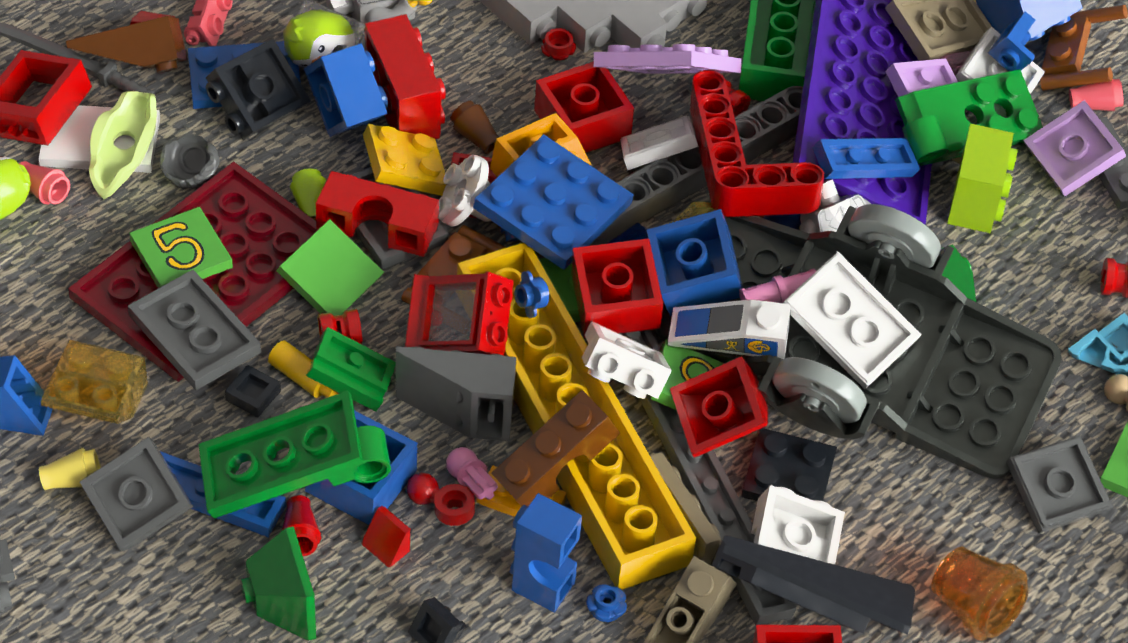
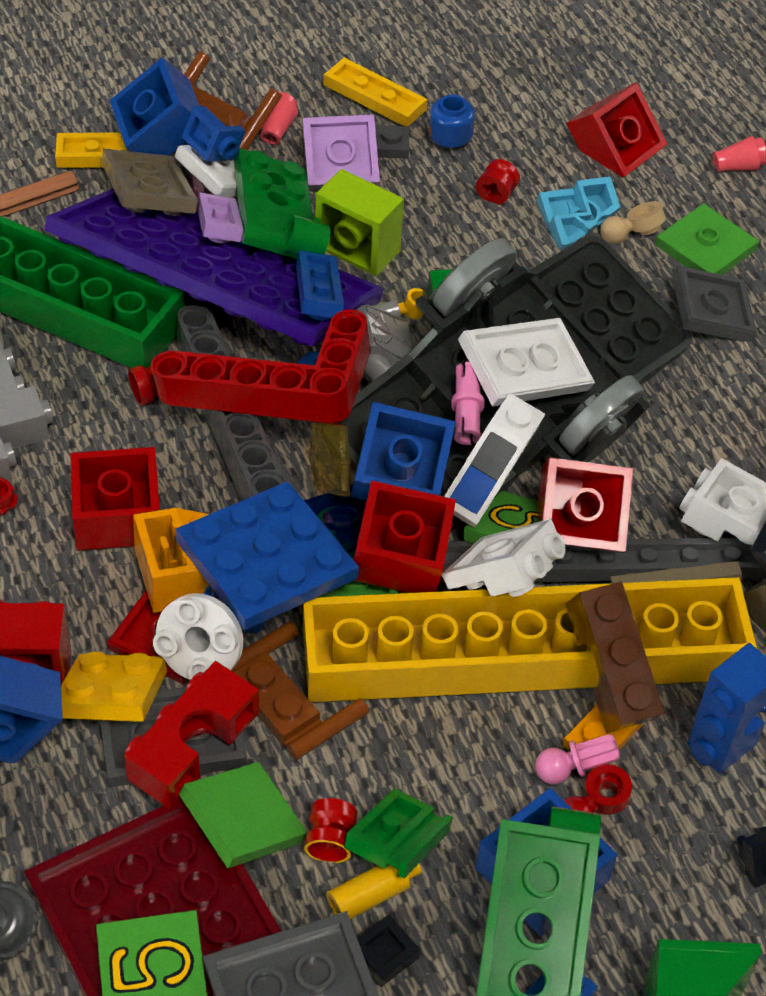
camera: 70 degrees left, 0 degrees up
(302, 518) = (607, 955): red cone -> none
(306, 189) = (110, 804): lime cone -> none
(387, 537) = (637, 868): red slope -> none
(459, 389) = (477, 726): dark grey slope -> none
(460, 313) = (388, 691): red window -> none
(474, 125) = (87, 607): reddish brown cone -> none
(531, 293) = (395, 612): blue plate -> none
(658, 142) = (201, 447): white tile -> none
(666, 60) = (114, 393): lavender plate -> none
(788, 463) = (654, 492): black plate -> none

